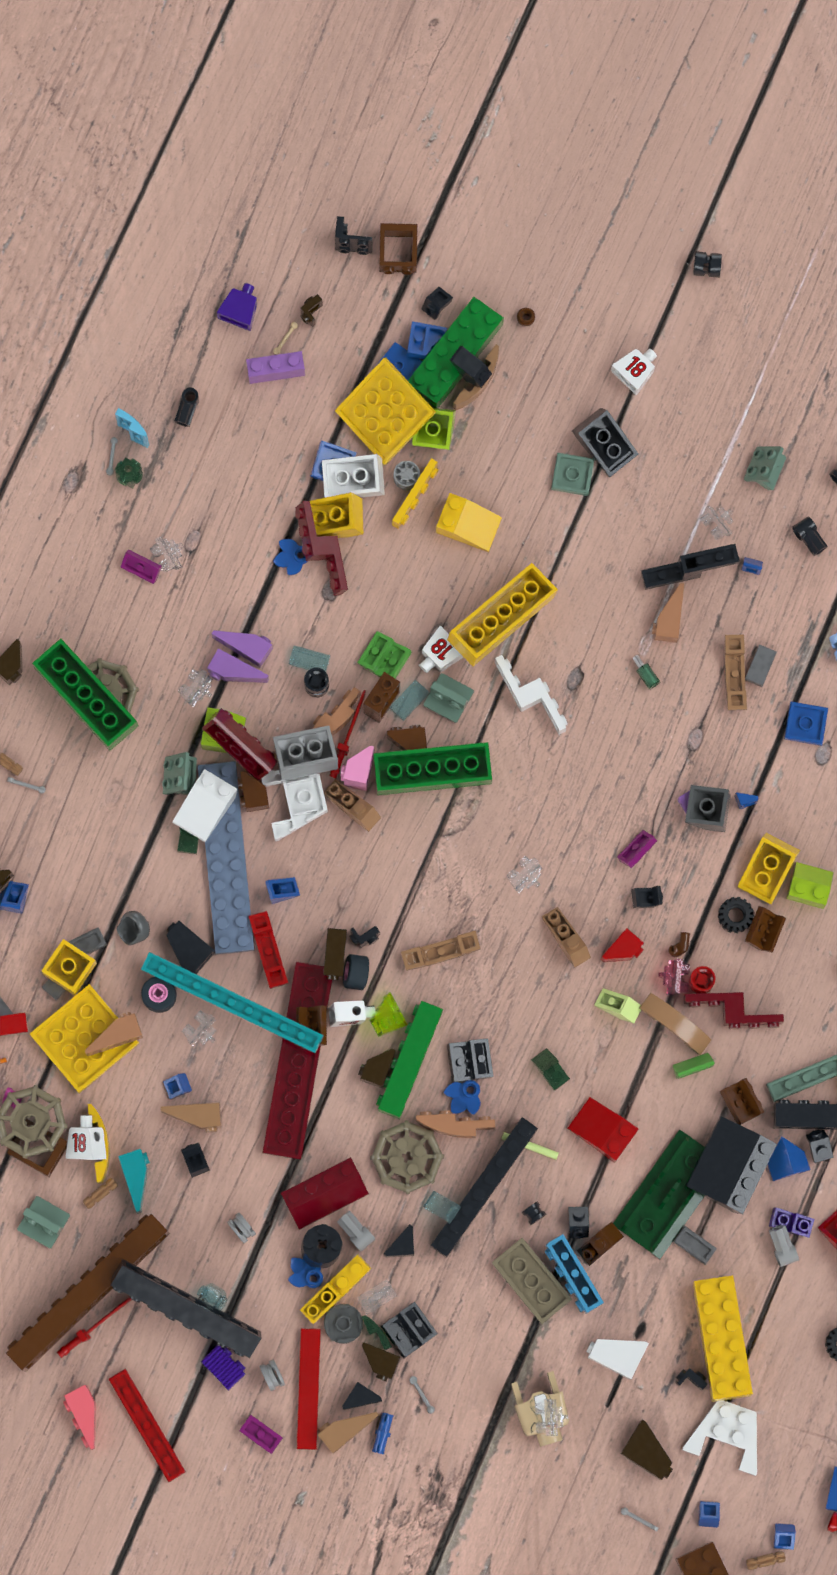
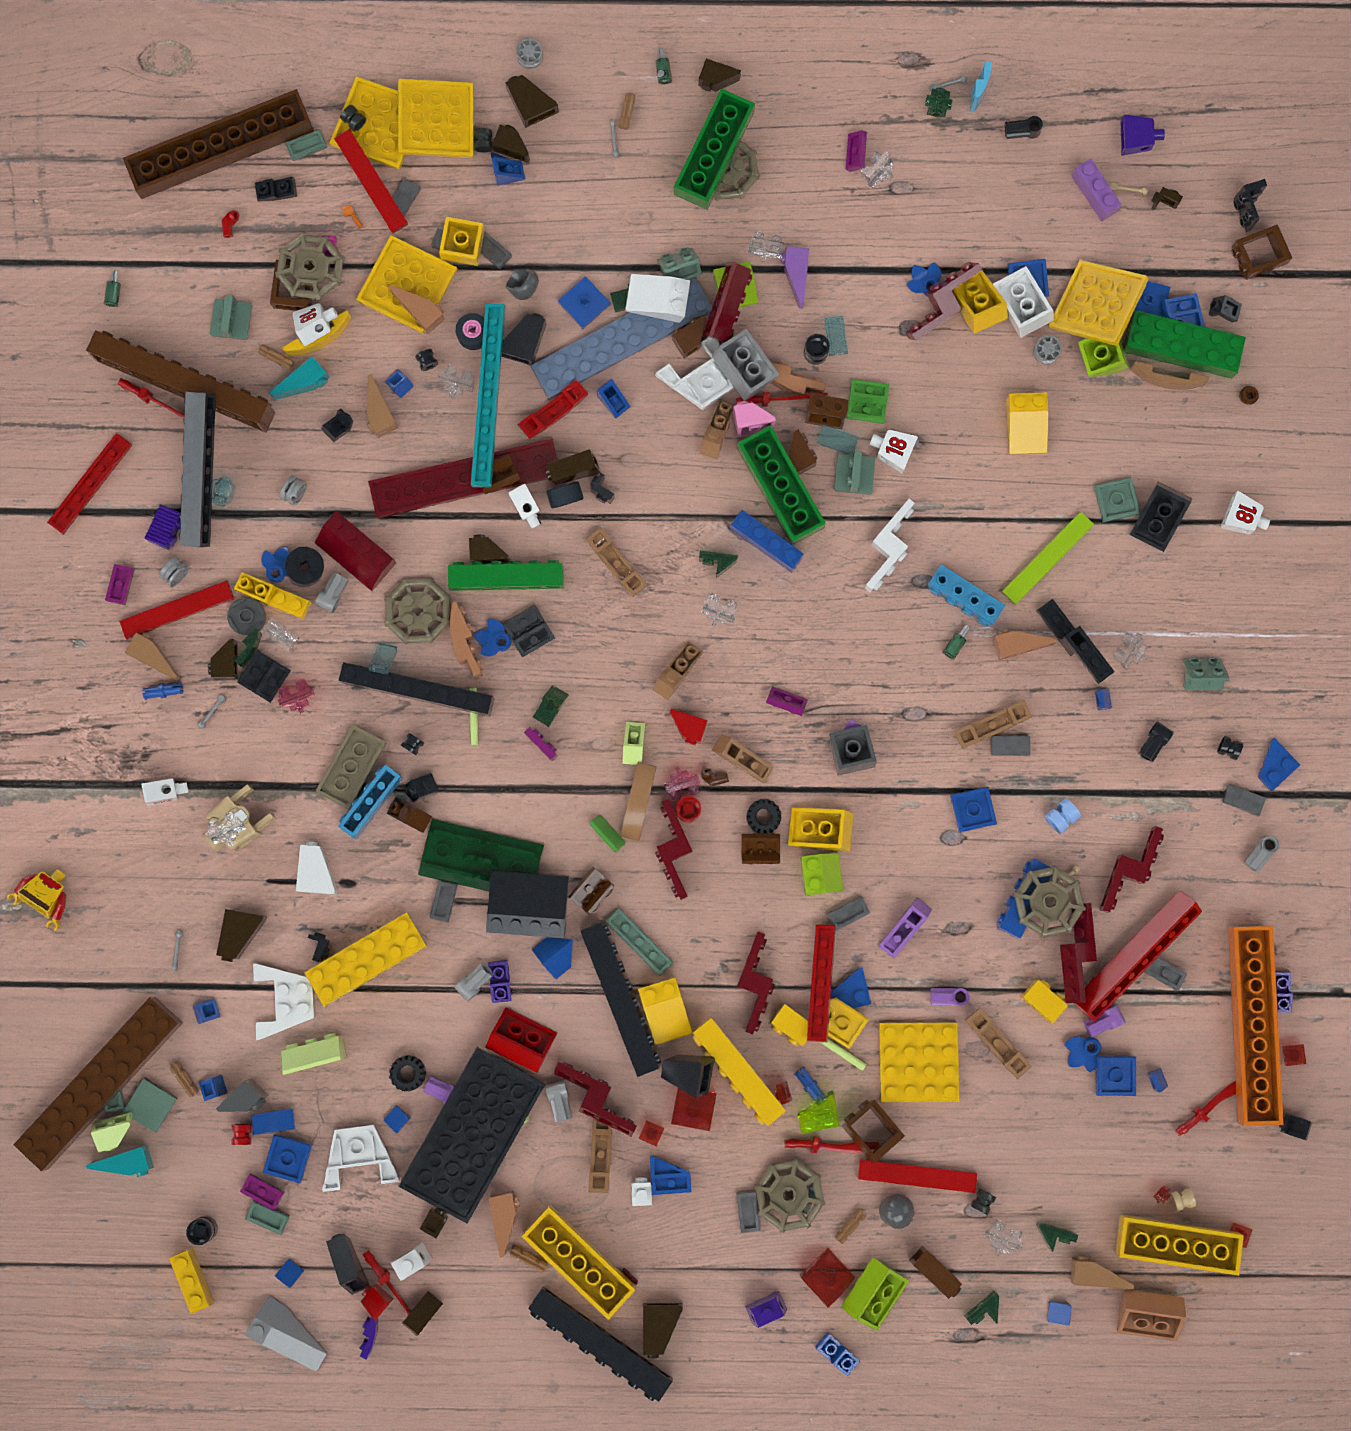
camera: 70 degrees right, 5 degrees up
(84, 1410) = (80, 422): coral slope -> none
(167, 1049) = (426, 360): none -> black wheel
(175, 878) = (584, 302): none -> blue plate
(247, 645) = (825, 277): medium lavender slope -> none
(360, 1397) = (186, 657): black slope -> none
(387, 1017) = (535, 539): clear neon green wing -> none
(403, 1245) = (336, 639): black slope -> none
(412, 499) = (1025, 363): yellow plate -> none
(440, 1315) = (287, 698): none -> clear pink hips
(470, 367) = (1175, 360): black slope -> none
(479, 804) = (766, 541): none -> blue brick
(481, 852) = (723, 561): none -> clear green slope
(482, 1477) = (154, 791): none -> white torso
(502, 614) = (952, 487): yellow brick -> none
(576, 1094) = (536, 737): none -> magenta plate
(601, 559) = (1047, 558): none -> lime tile
(603, 1129) = (514, 775): red slope -> none
(605, 646) = (966, 596): none -> dark azure brick
(647, 897) = (745, 728): black bracket -> none
(673, 912) = (742, 758): none -> medium nougat slope
(745, 800) = (875, 782): blue slope -> none
(791, 1424) = (313, 1053): none -> yellowish green slope
(809, 1507) = (244, 1098): none -> dark grey slope
(819, 1145) = (581, 978): bracket -> none

